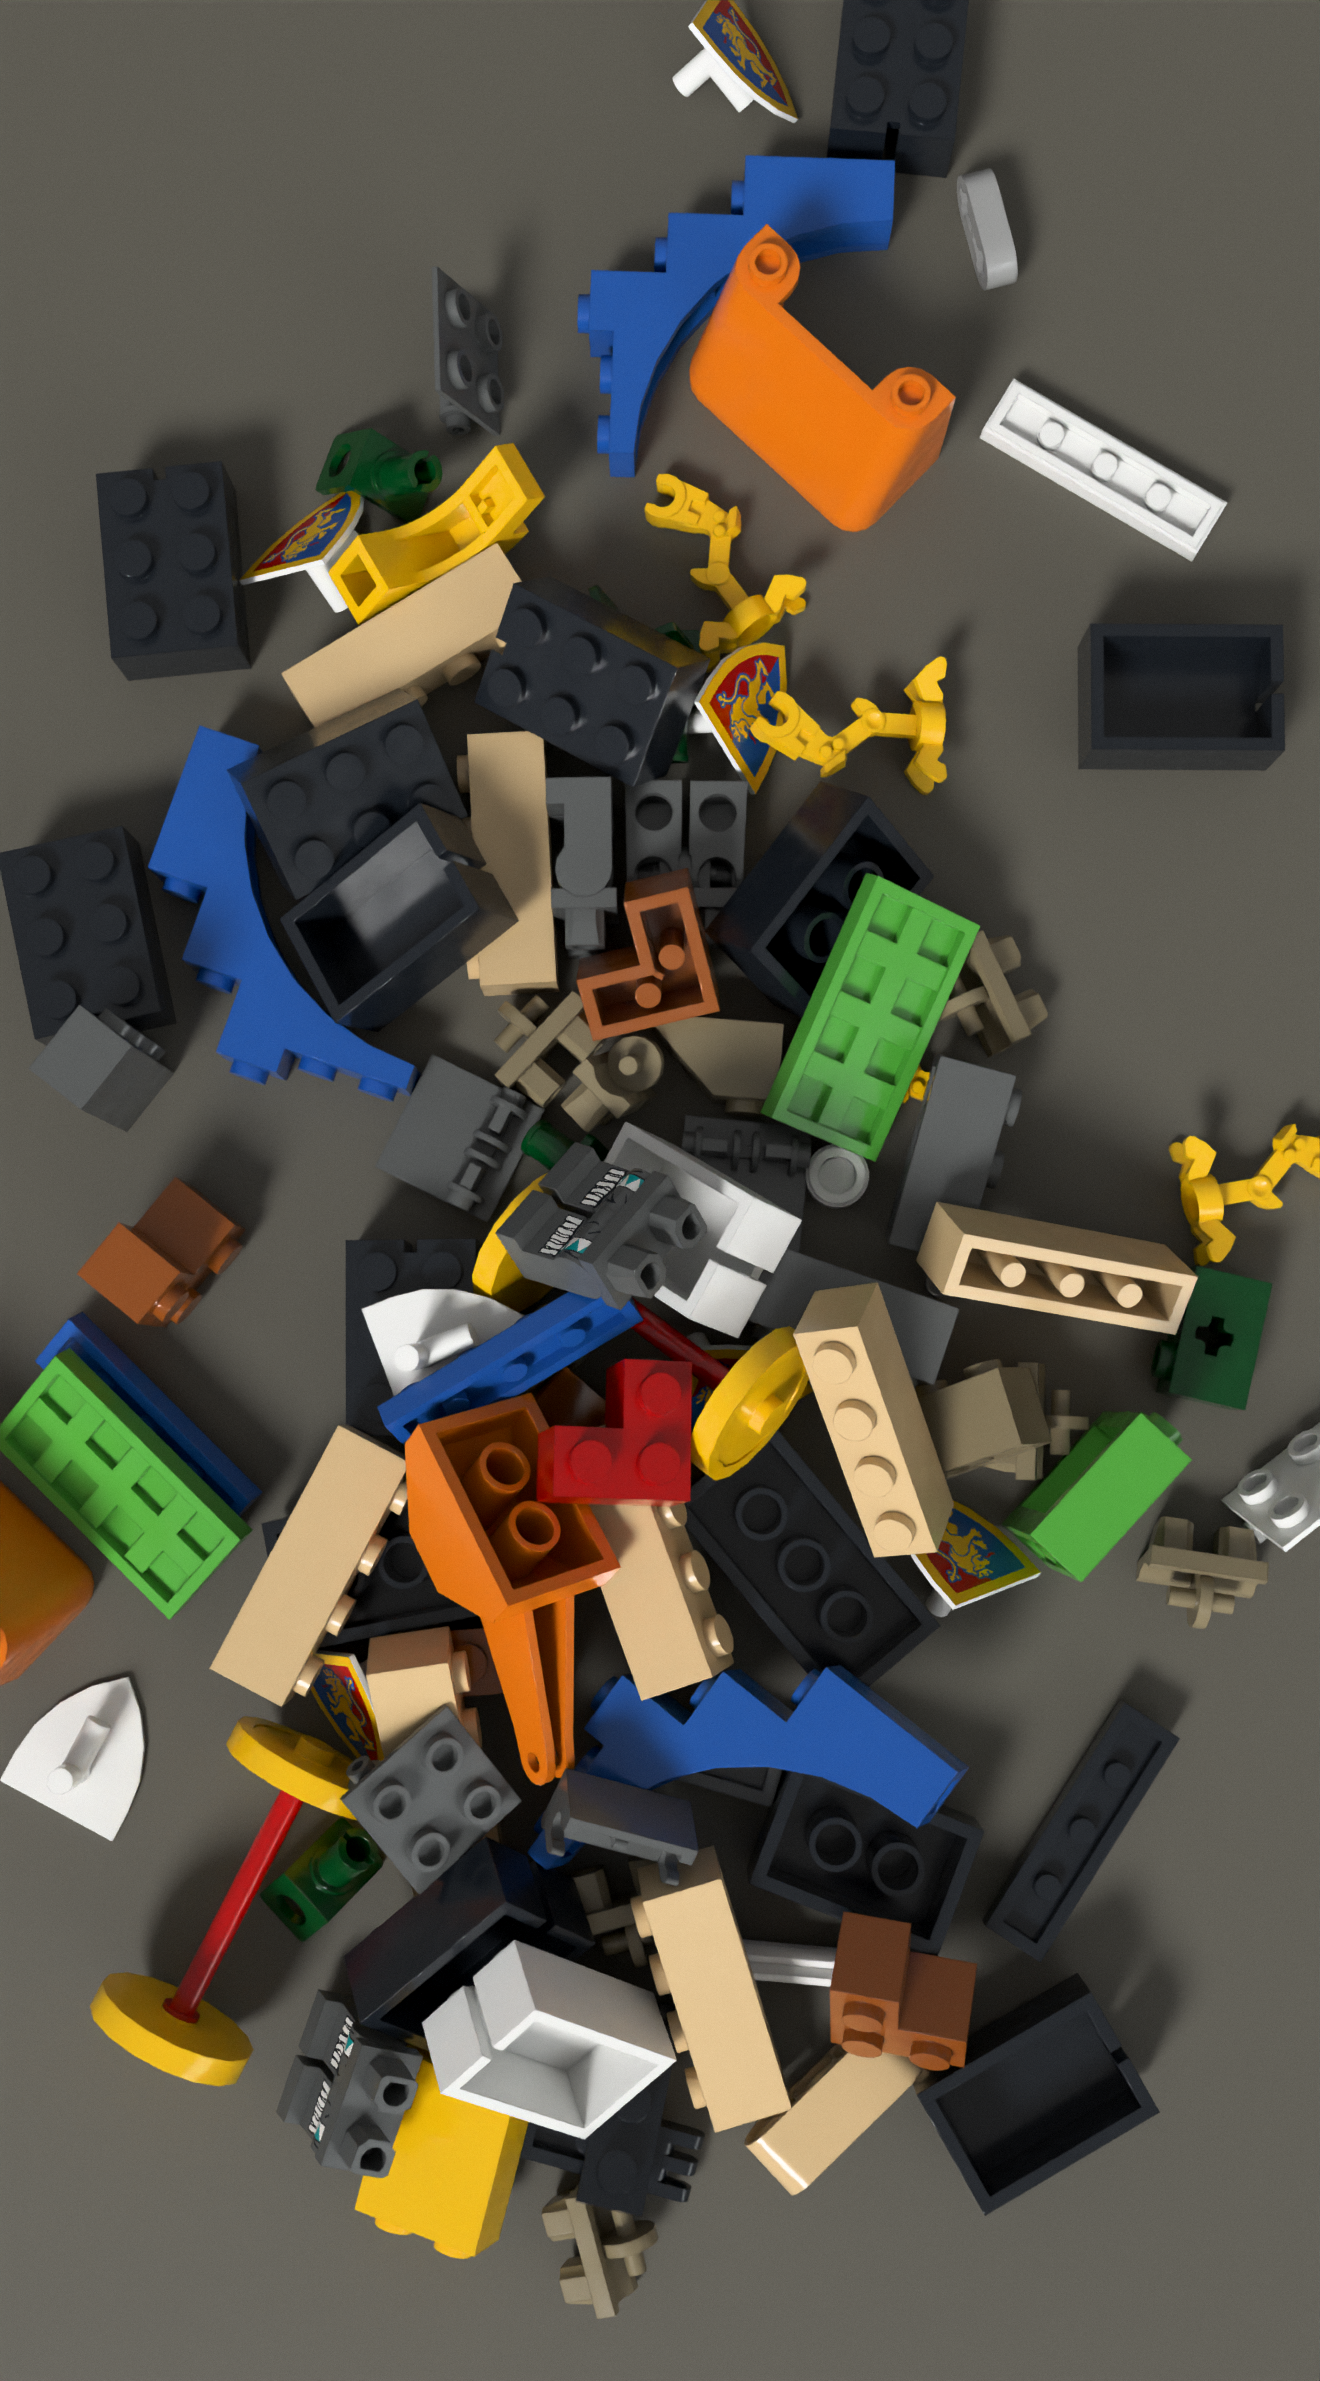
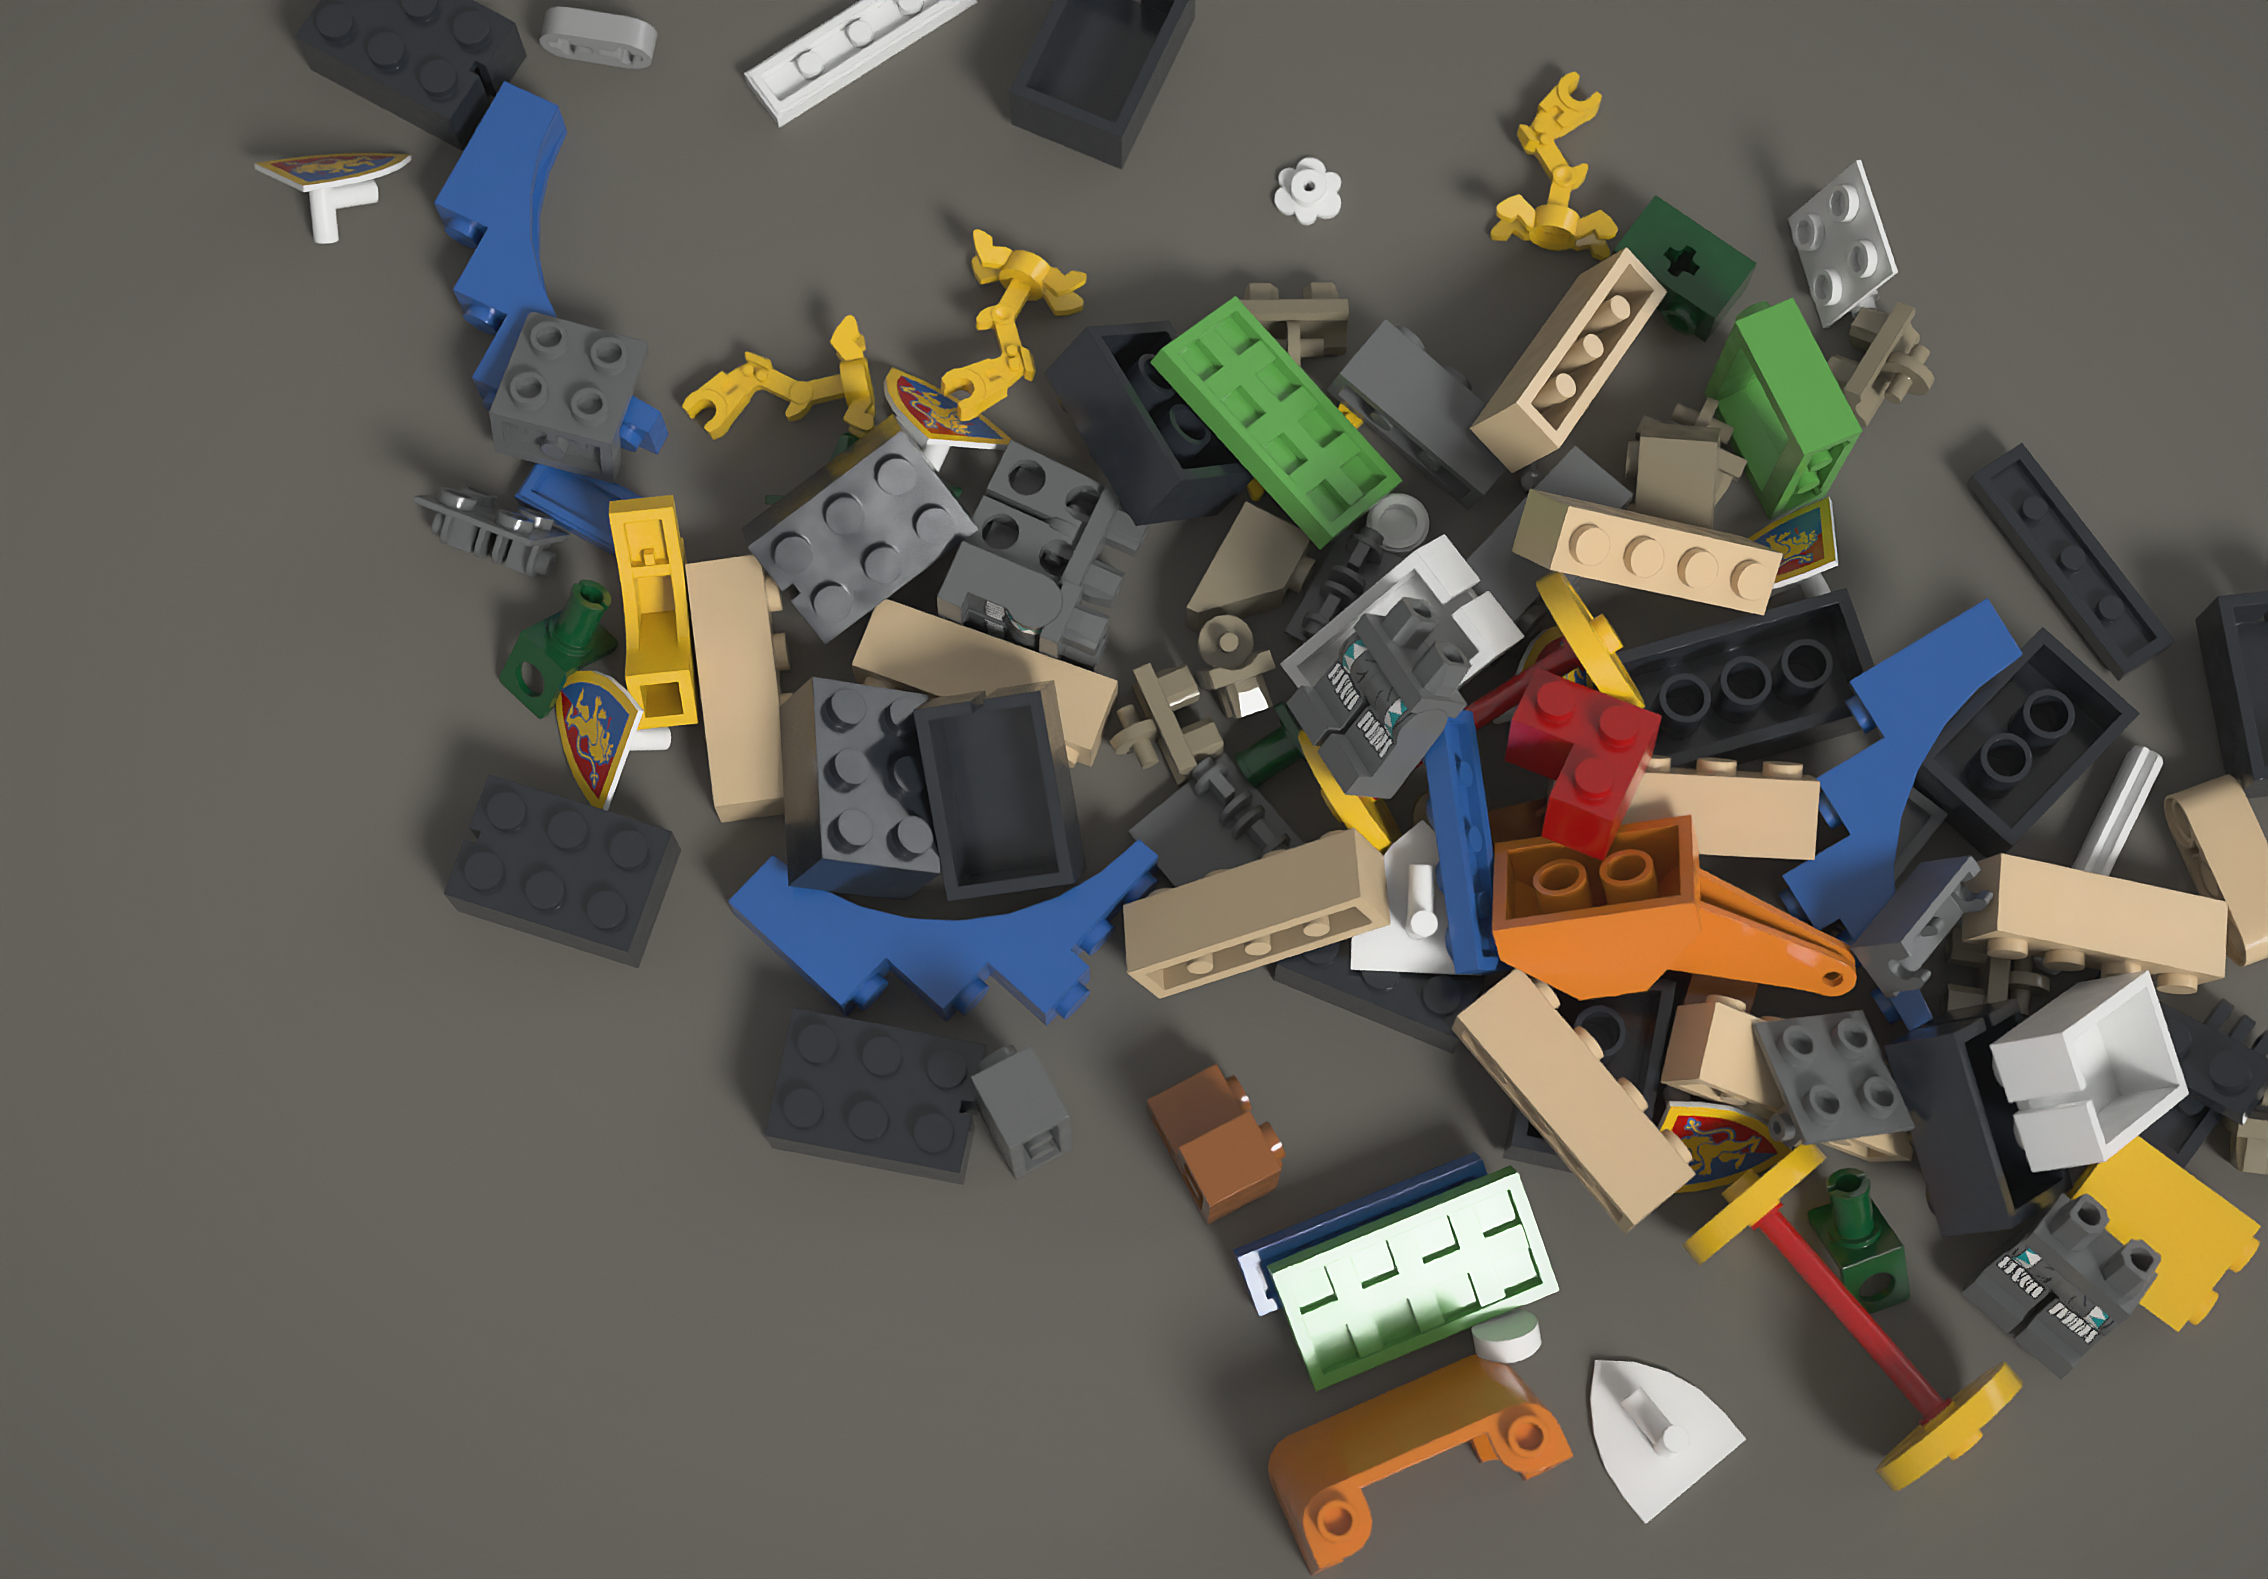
camera: 70 degrees left, 10 degrees down
(104, 1591) = (1507, 1337): none -> white tile
(380, 1202) = (1256, 913): none -> tan brick
(536, 421) = (574, 502): none -> blue tile
(613, 360) = (567, 396): none -> dark grey bracket
(665, 972) = (1157, 578): dark orange brick -> none
(802, 406) = (685, 248): orange windscreen -> none
(898, 1997) = (2162, 759): dark orange brick -> none
(1132, 970) = (1307, 205): none -> white plant

